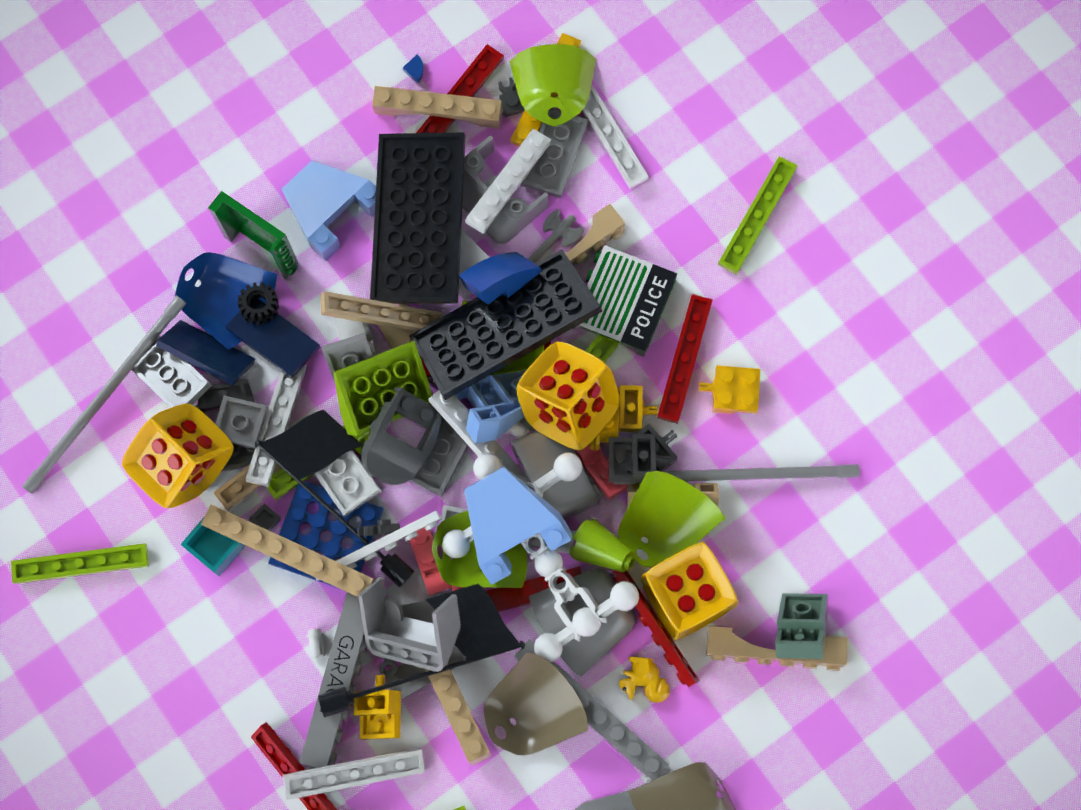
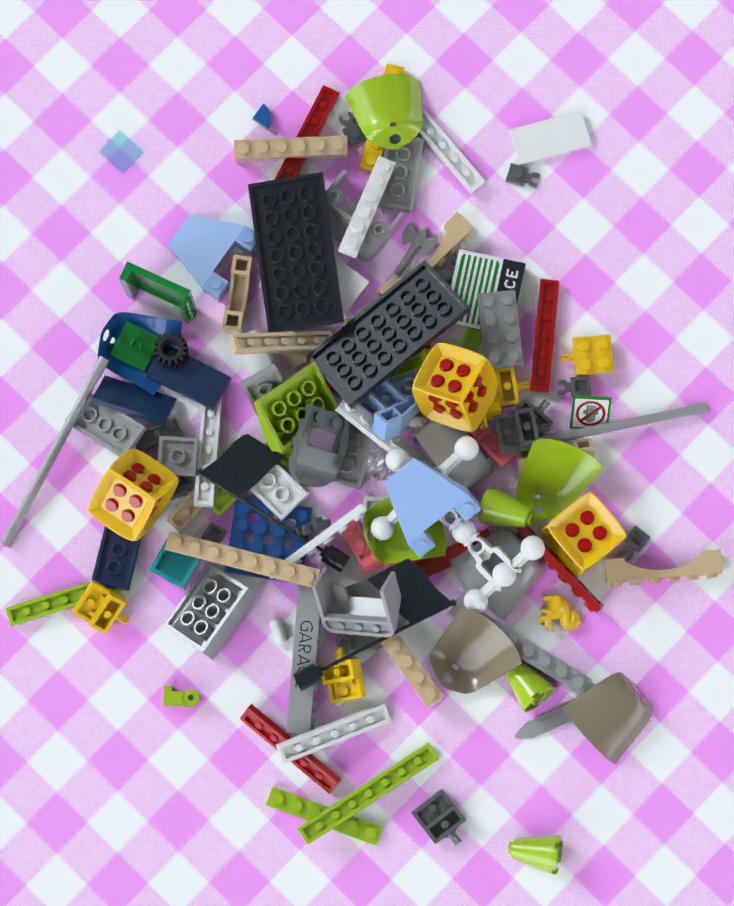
camera: 15 degrees left, 5 degrees up
(117, 579) = (100, 607): none -> yellow plate
(147, 530) = (116, 561): none -> dark blue tile
(195, 702) = (178, 698): none -> lime leg
(219, 293) = (134, 346): none -> green piece
(242, 606) = (210, 610): none -> light grey slope
(251, 81) = (121, 151): none -> clear light blue piece
(352, 240) = (238, 294): none -> tan arch
(462, 469) = (376, 463): none -> clear piece
(499, 276) = (375, 292): blue slope -> none
(593, 760) = (528, 687): none -> lime cone
(634, 341) = (500, 328): none -> light grey plate
(688, 176) = (519, 175): none -> dark grey plate
(714, 422) = (577, 386): none -> dark grey plate
(721, 451) = (589, 411): none -> piece
(730, 142) = (550, 138): none -> white tile
(749, 611) = (635, 541): none -> dark grey plate
(757, 215) = (585, 199): lime plate -> none
(801, 626) = (681, 546): sand green slope -> none

